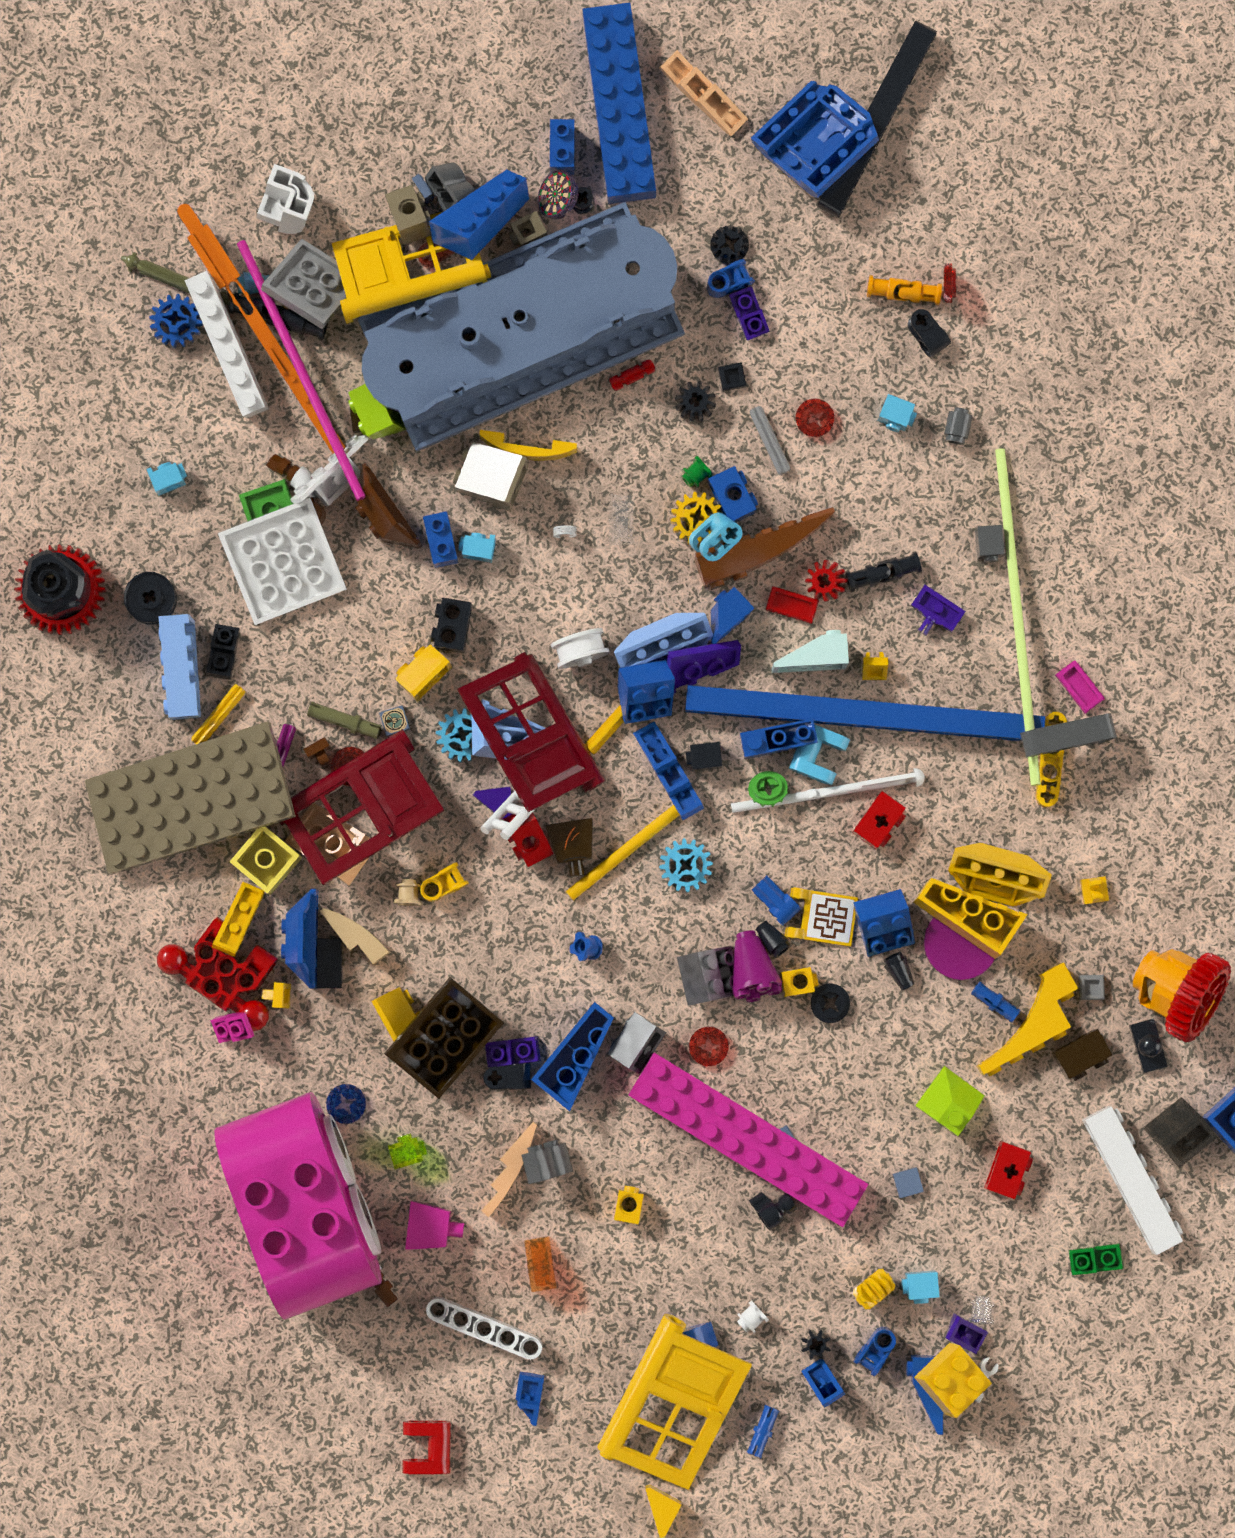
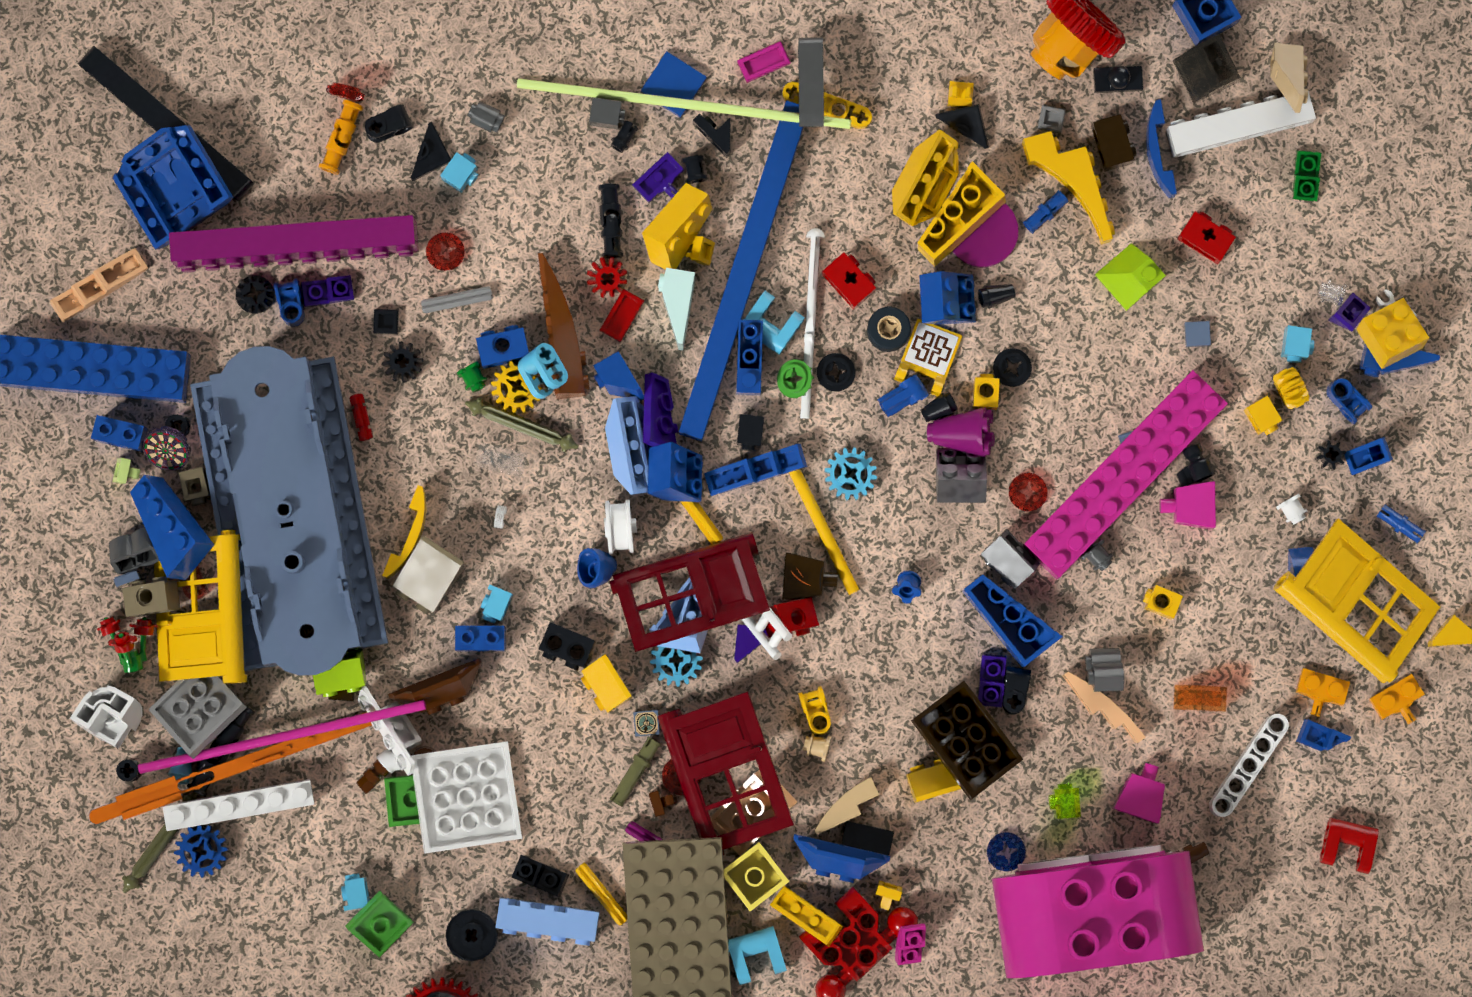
camera: 80 degrees left, 0 degrees up
(141, 506) = (379, 924): none -> bright green tile
(200, 873) = (753, 944): none -> medium azure connector
(231, 232) = (120, 770): none -> black bush
(358, 198) = (124, 642): none -> red plant
(526, 160) = (124, 471): none -> yellowish green tile
(535, 635) = (595, 567): none -> blue hat
(577, 1386) = (1322, 689): none -> light orange plate
(585, 1466) = (1398, 699): none -> light orange plate
(660, 532) = (521, 424): none -> olive wheel
(660, 1130) = (1098, 556): none -> dark grey brick
(732, 1214) = (1192, 505): none -> dark pink torso
(788, 268) = (294, 242): none -> magenta brick
(788, 817) = (843, 363): none -> black gear
(839, 1267) = (1263, 416): none -> yellow brick
(847, 867) = (888, 329): none -> black wheel
(892, 636) = (676, 226): none -> yellow wedge
(908, 382) = (431, 154): none -> black tile
(955, 642) = (694, 169): none -> black bush
(970, 565) = (623, 137): none -> black pin
(992, 660) = (719, 138): none -> black slope
(1039, 602) = (674, 80): none -> blue tile
(1058, 1115) = (1164, 178): none -> blue slope
(1067, 903) = (967, 122): none -> black tile
(1194, 1216) = (1288, 73): none -> tan slope

